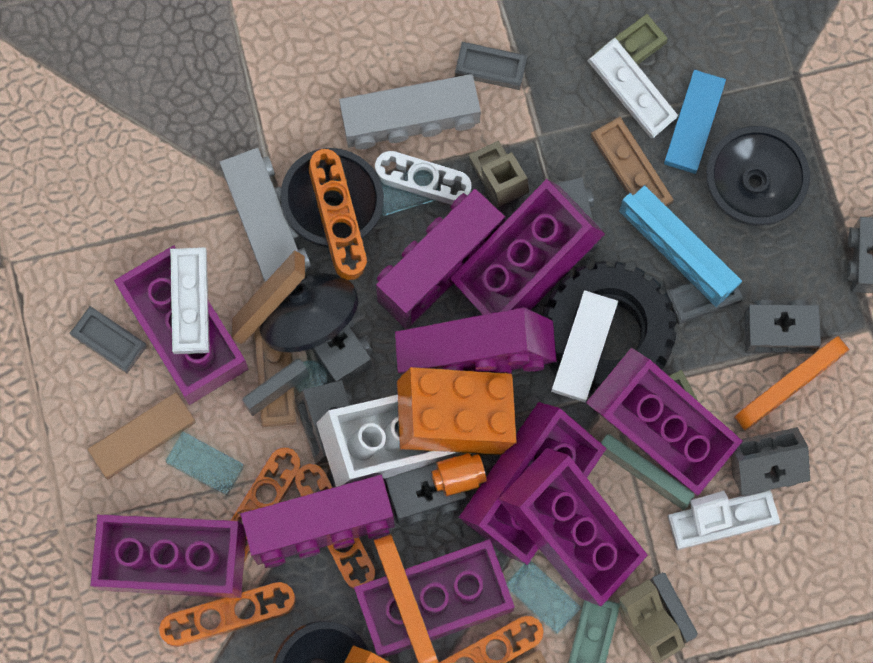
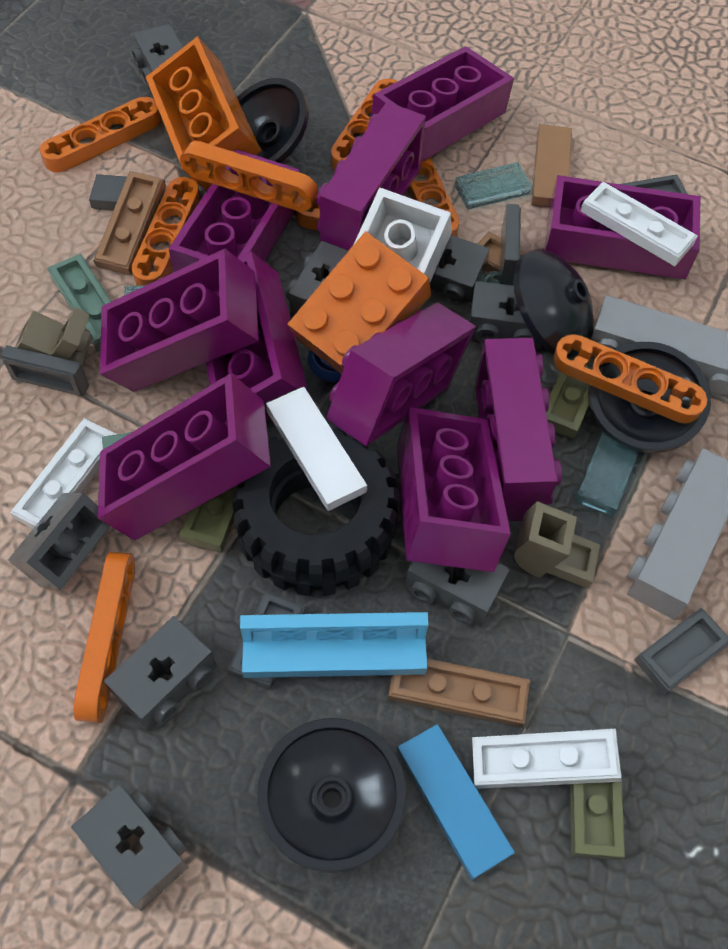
camera: 130 degrees right, 15 degrees down
(268, 297) = (594, 282): medium nougat tile -> none
(381, 250) = (568, 404): none -> olive plate
(396, 178) = (615, 470): white beam -> none
(458, 474) = (305, 283): orange brick -> none
(711, 513) = (75, 452): white tile -> none

